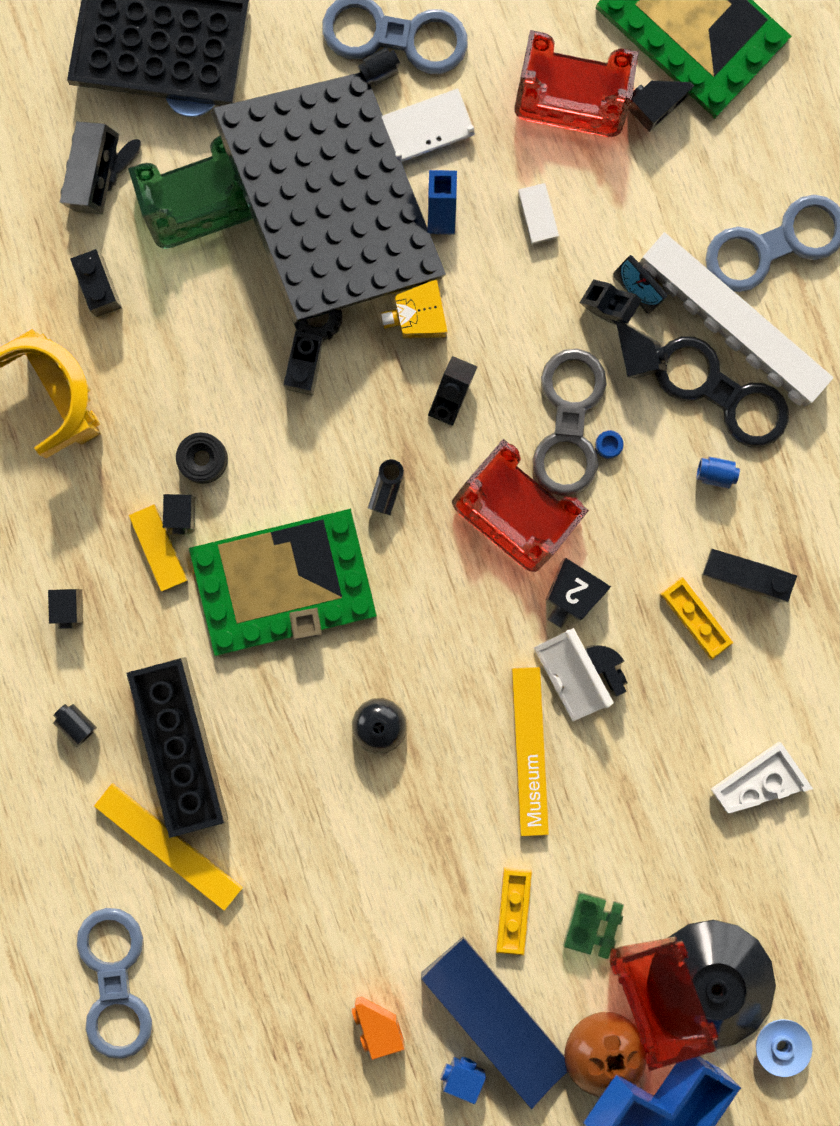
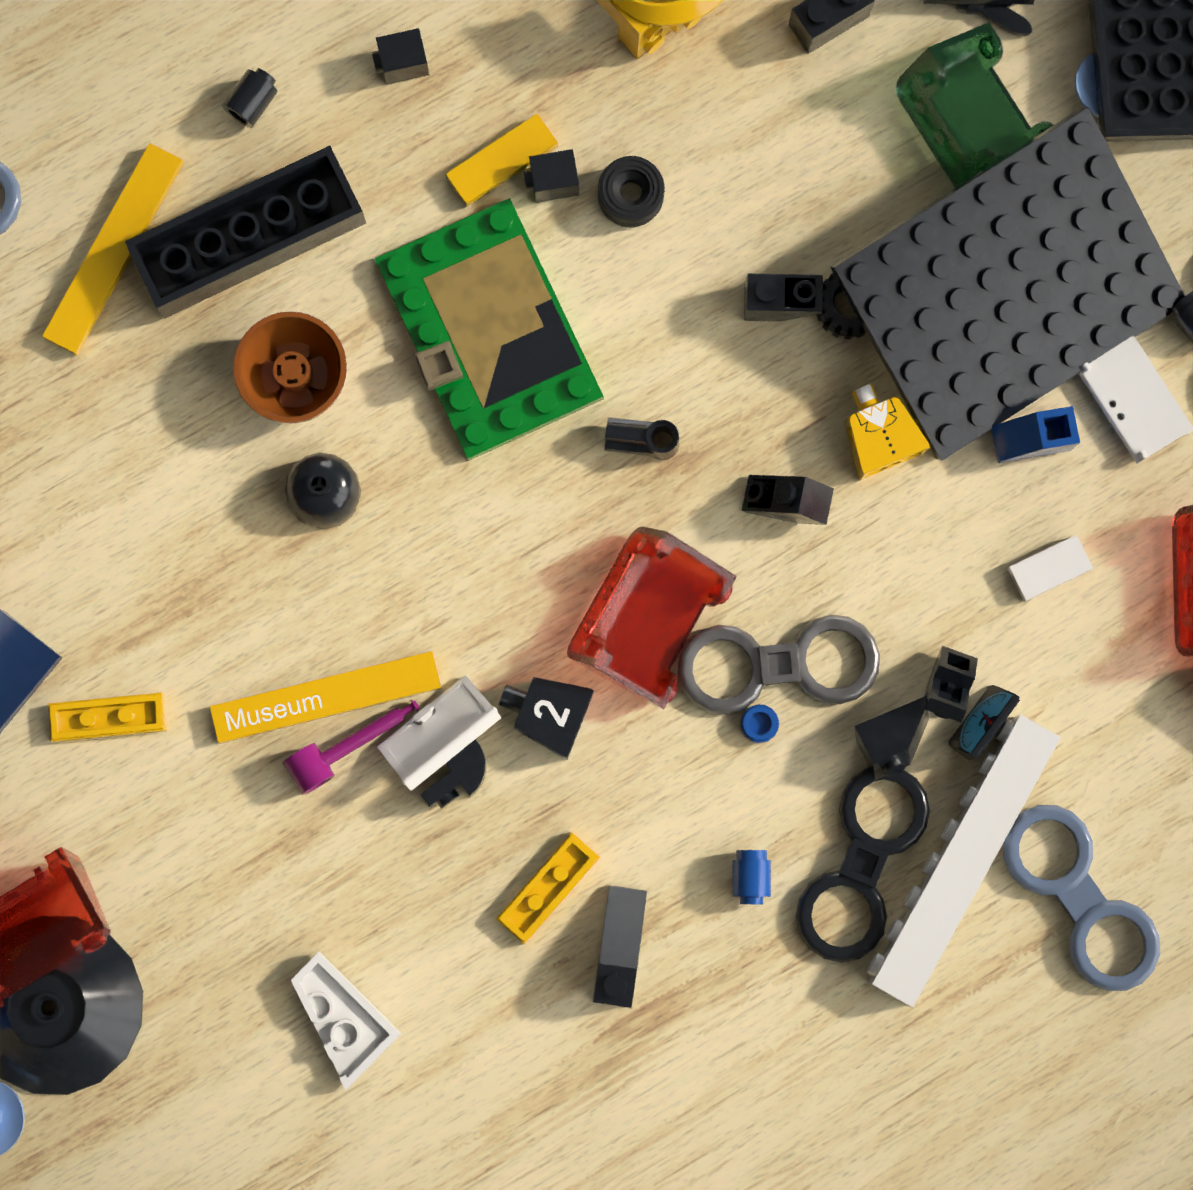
camera: 80 degrees right, 5 degrees down
(276, 744) = (275, 353): none -> dark orange piece
(579, 771) = (311, 767): none -> magenta piece
(585, 921) = (110, 815): clear green plate -> none

